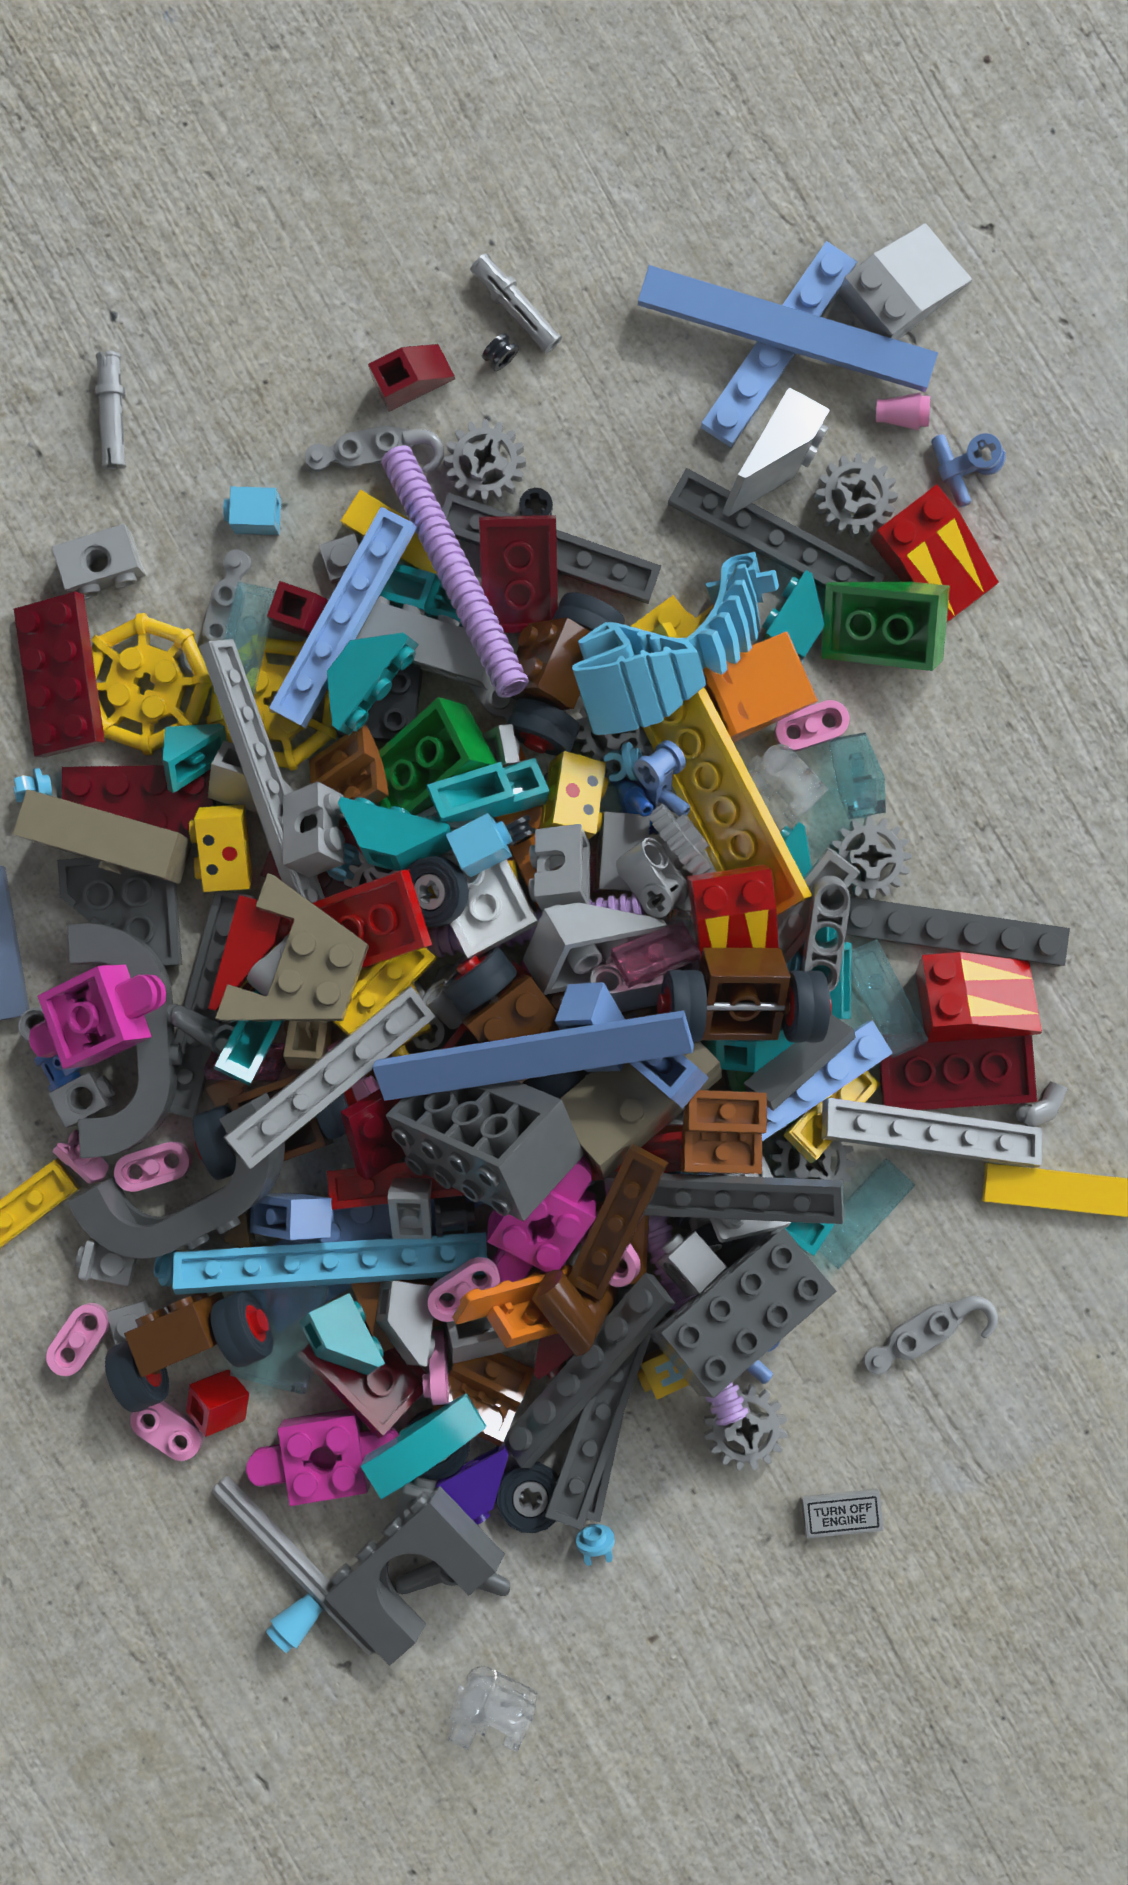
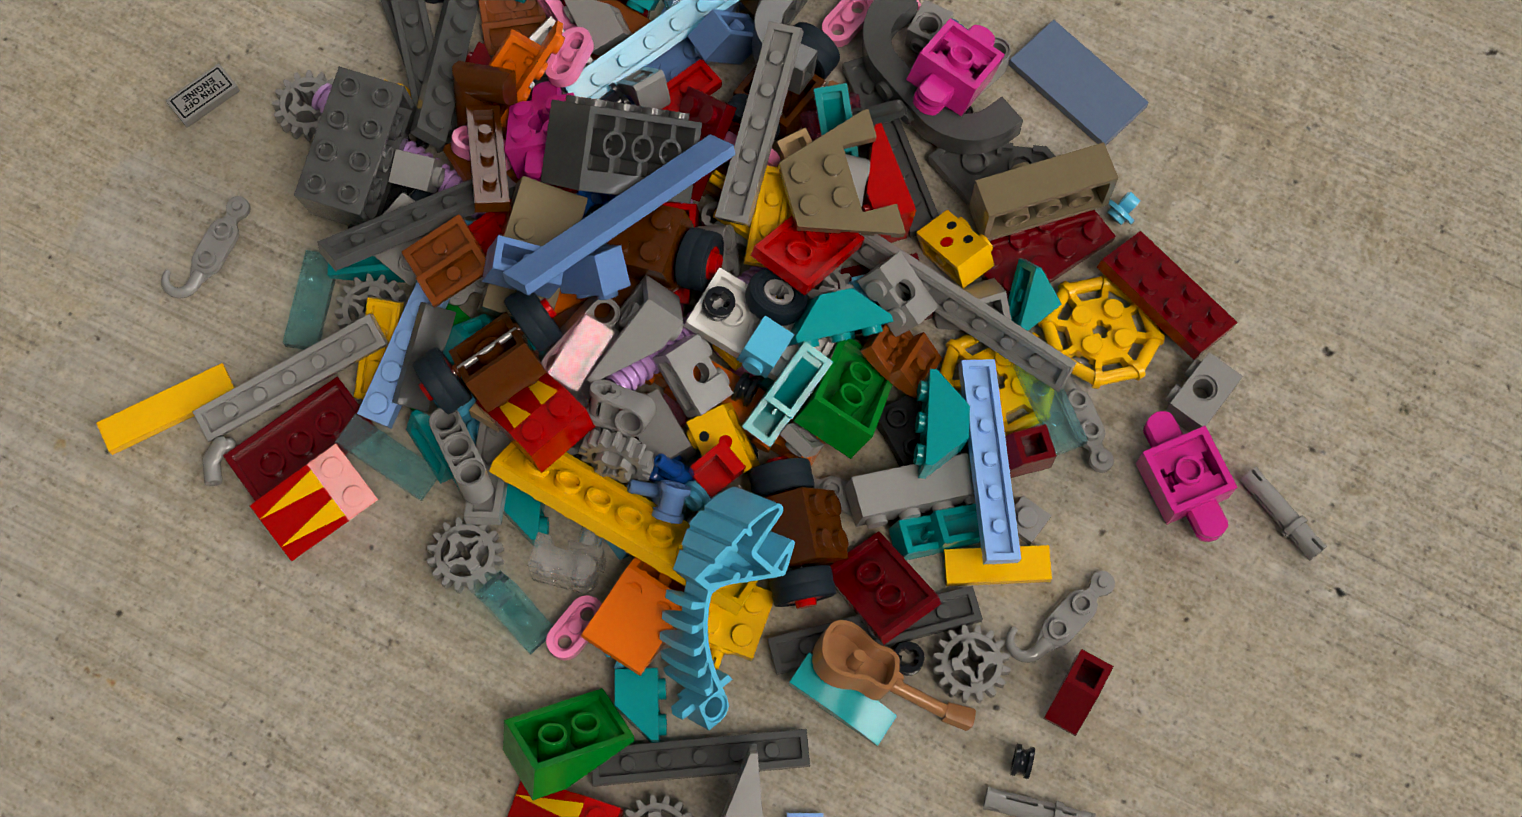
camera: 150 degrees right, 15 degrees down
(173, 495) = (1186, 475): none -> dark pink brick
(253, 510) = (1118, 507): medium azure brick -> none
(455, 572) = (932, 549): lavender piece -> none
(500, 906) = (716, 293): none -> black bush
(589, 520) = (854, 661): none -> medium nougat piece
(599, 766) = (717, 469): none -> red panel
(620, 506) = (850, 707): none -> teal slope
(958, 931) = (363, 547): dark grey plate -> none

